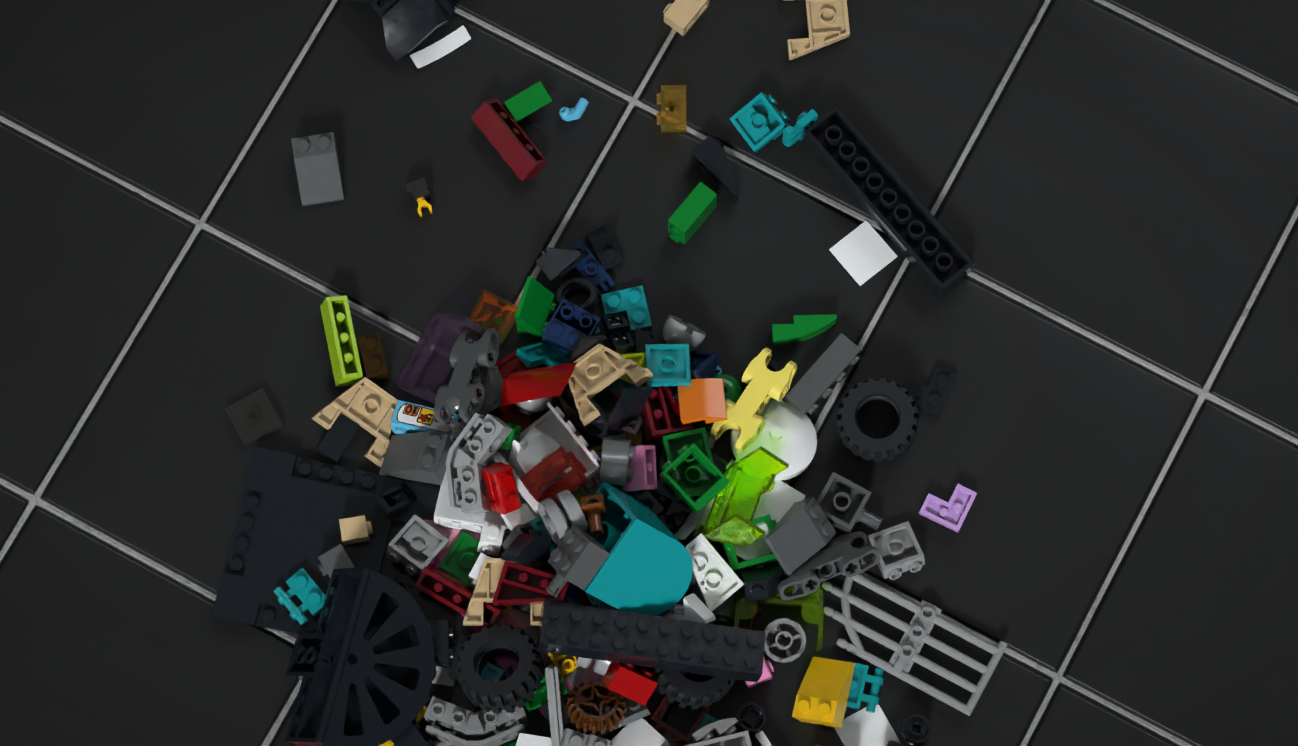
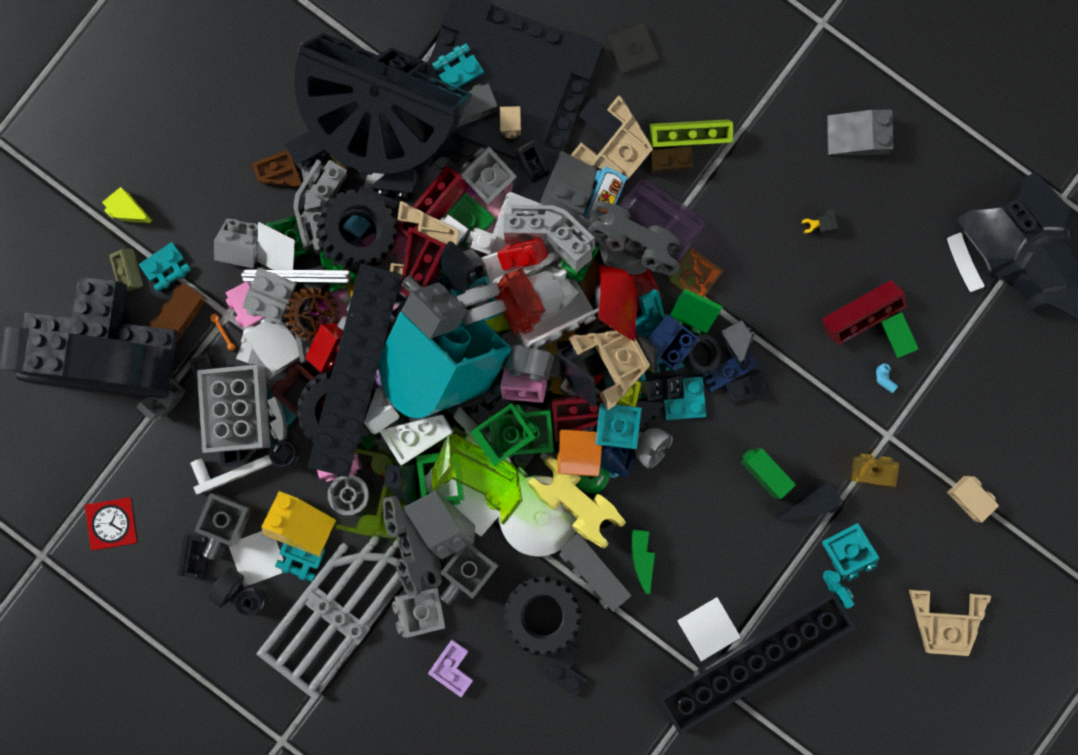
camera: 95 degrees right, 10 degrees up
(594, 513) = (478, 333): dark orange bracket -> none

